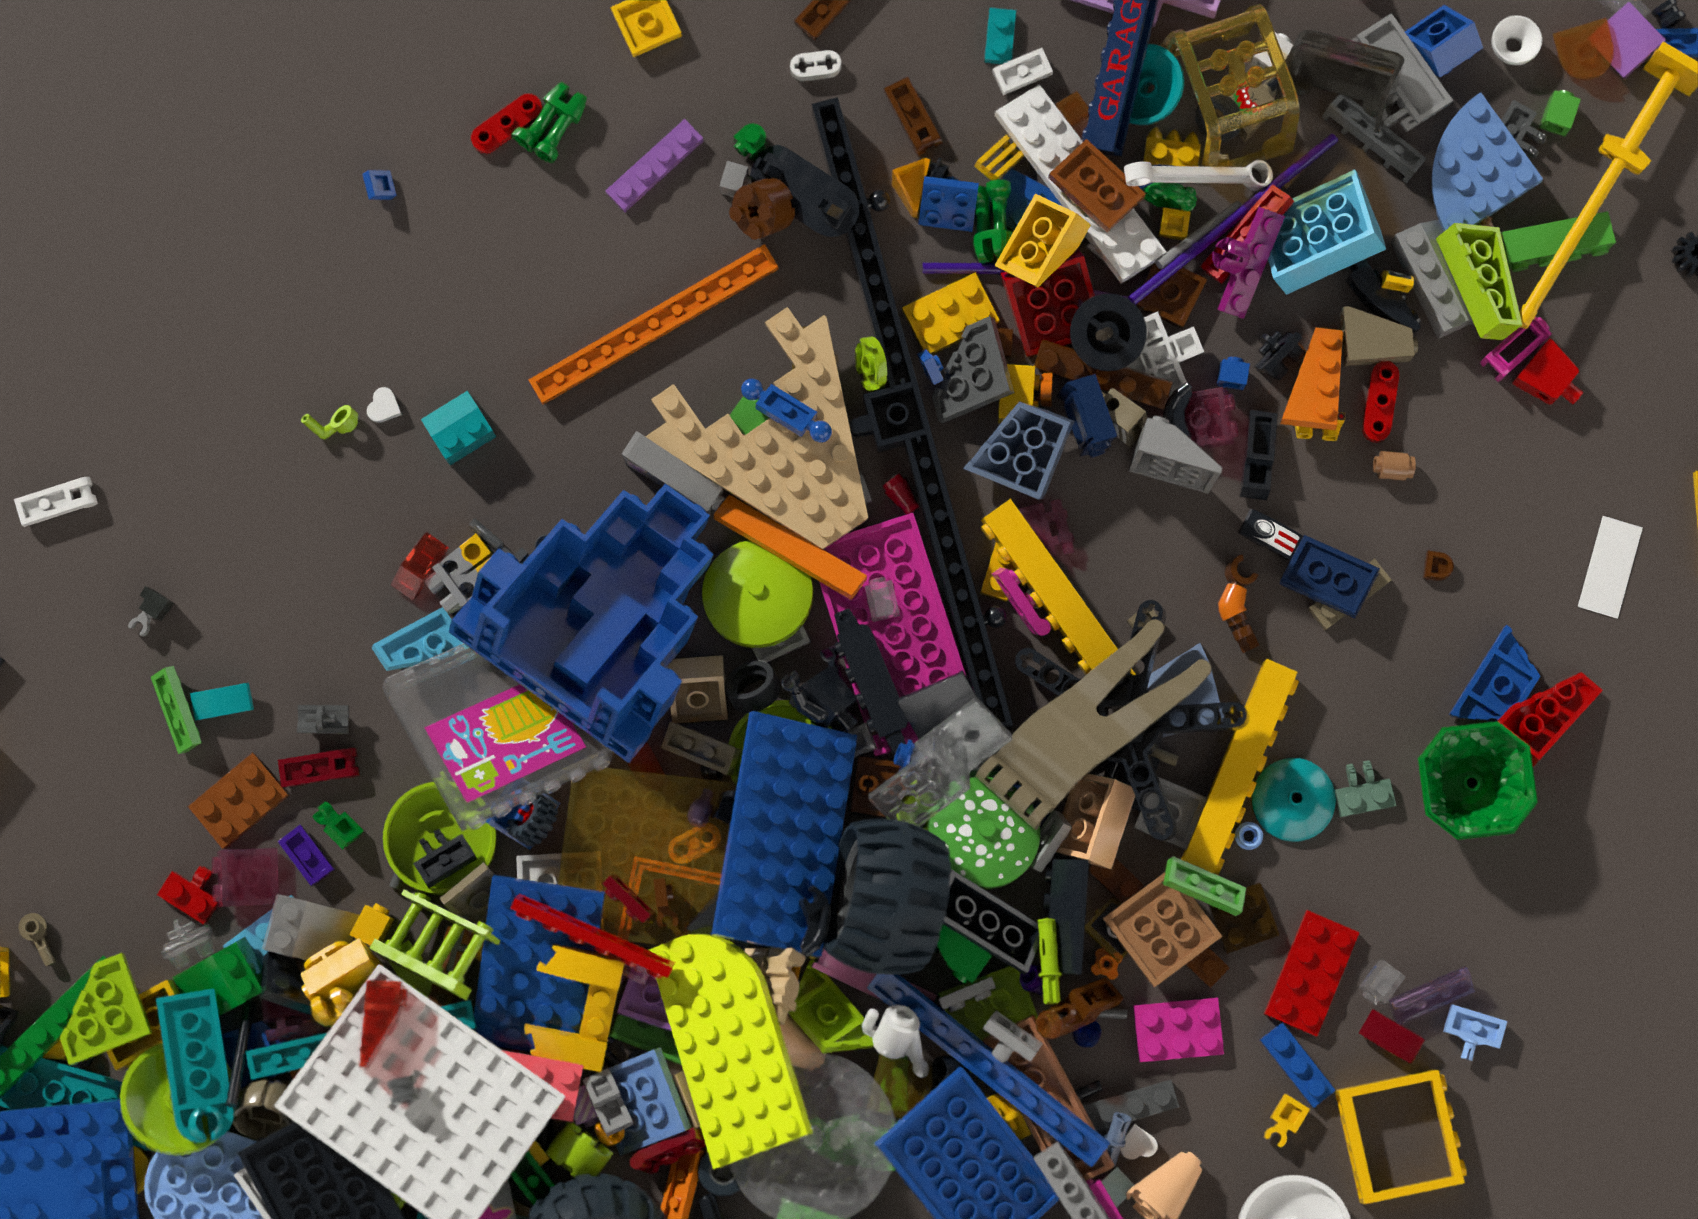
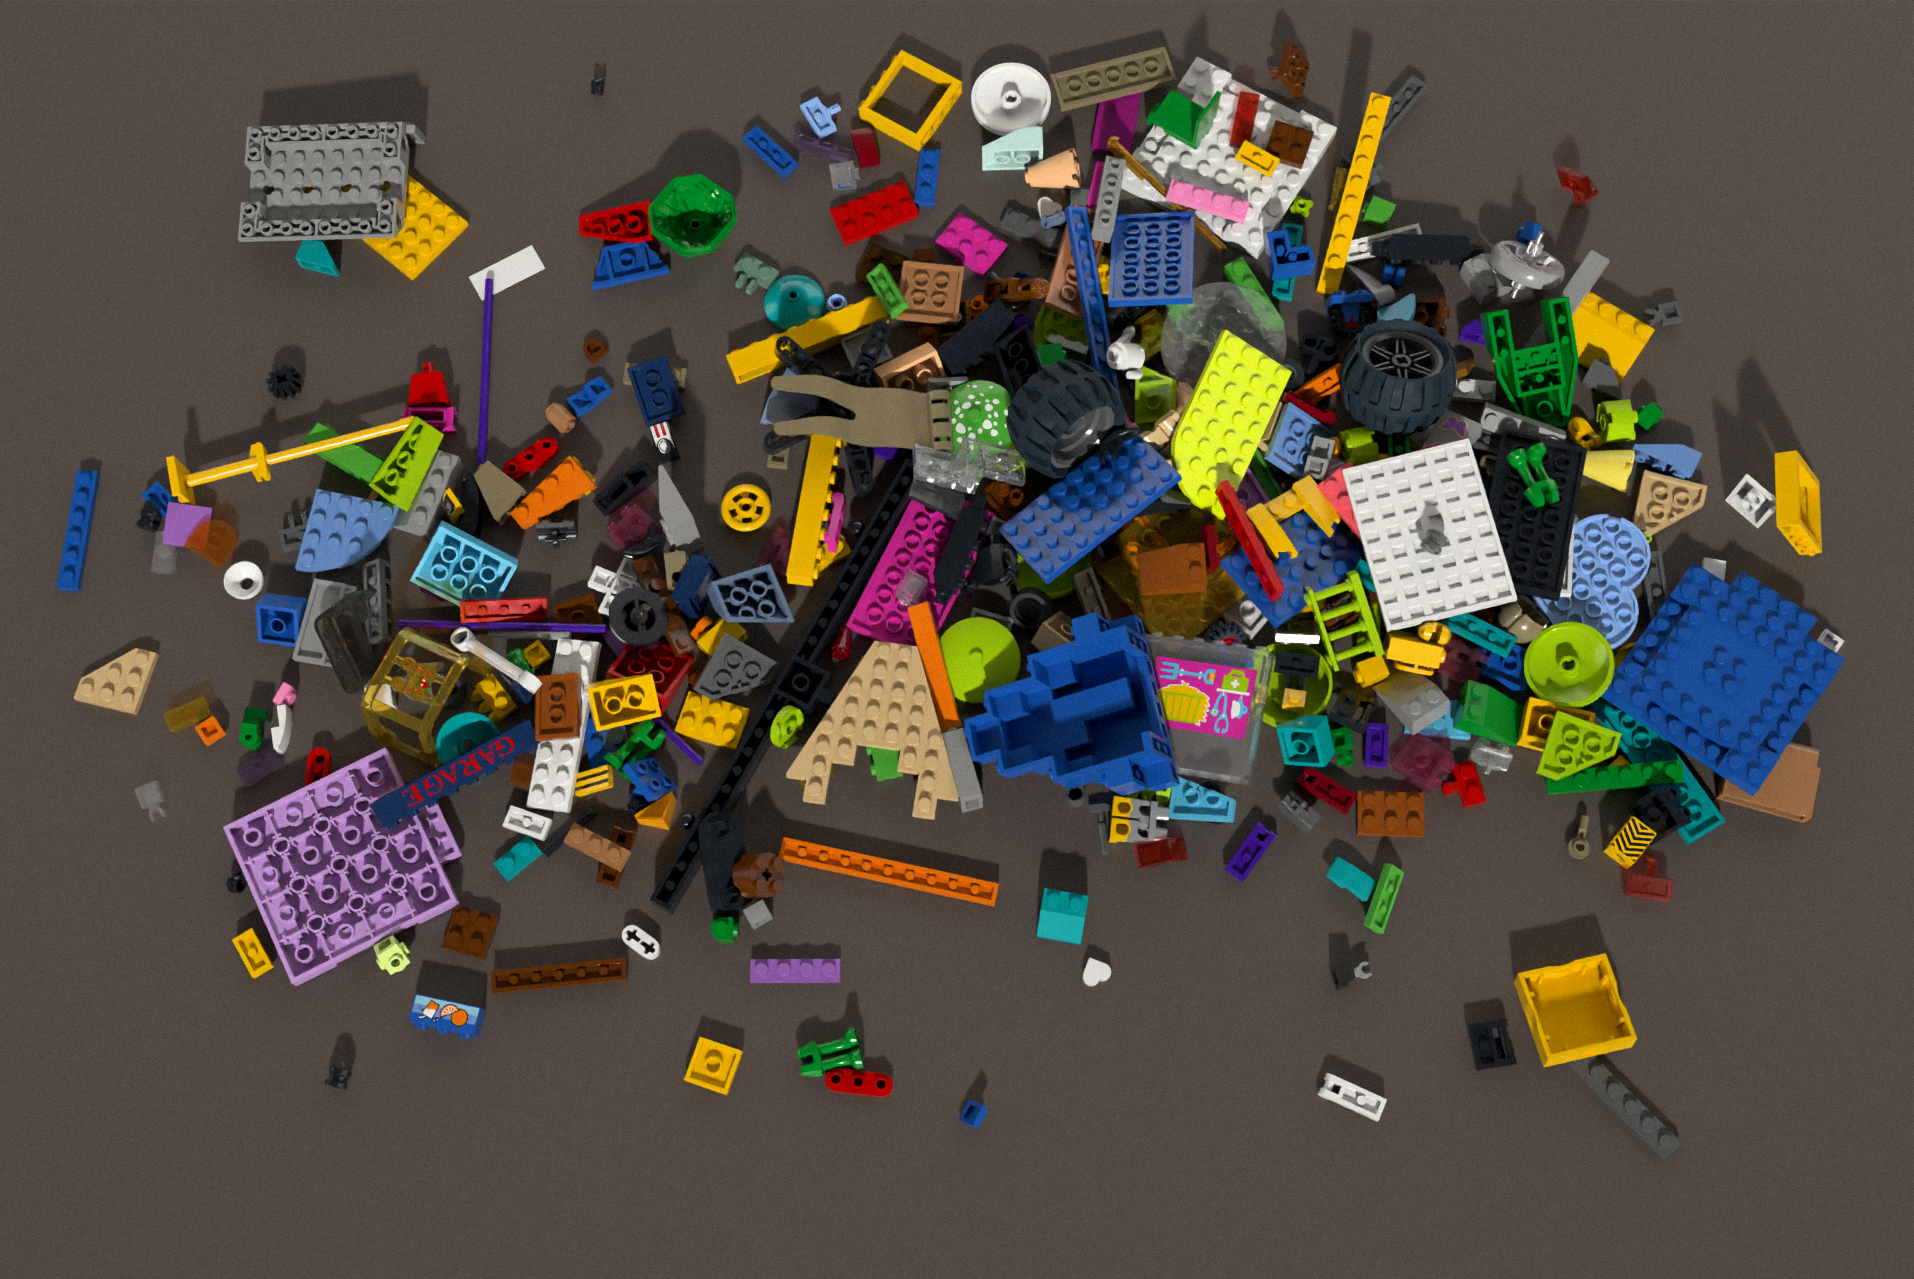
camera: 135 degrees left, 10 degrees down
(195, 1064) = (1543, 671): teal plate -> none
(240, 1054) = (1514, 656): black bar -> none
(283, 983) = (1453, 676): black wing -> none
(337, 643) = (1250, 852): none -> dark purple plate
(342, 421) = (1133, 986): lime plate -> none
(364, 865) = (1346, 707): none -> black plate
(371, 793) = (1306, 741): none -> teal slope
(381, 1012) = (1411, 594): clear red slope -> none
(418, 823) = (1294, 700): none -> yellow plate
(646, 844) = (1173, 570): none -> dark orange slope
(663, 895) = (1188, 533): reddish brown plate -> none
(701, 809) = (1123, 562): cylinder -> none
(786, 410) = (862, 735): blue plate -> none
(903, 754) = (982, 489): blue plate -> none
(931, 366) = (754, 697): blue plate -> none
(935, 104) = (597, 847): none -> medium nougat plate
(977, 103) = (585, 818): none -> black bar
(1011, 1038) = (1066, 298): light grey tile -> none
(1049, 961) = (1007, 322): lime axle -> none
(1142, 557) = (757, 520): none -> yellow plate
(1228, 1177) = (1014, 150): none -> light aqua slope
(1232, 605) = (720, 425): reddish brown piece -> none
(1233, 373) = (592, 542): blue plate -> none
(1246, 261) = (522, 592): magenta plate -> none
(1289, 1116) = (957, 156): yellow plate -> none
(1391, 514) = (588, 398): none -> blue slope
(1484, 940) = (770, 152): none -> blue plate
(1518, 445) = (485, 369): none -> dark purple piece
(1560, 112) = (265, 521): bright green brick -> none

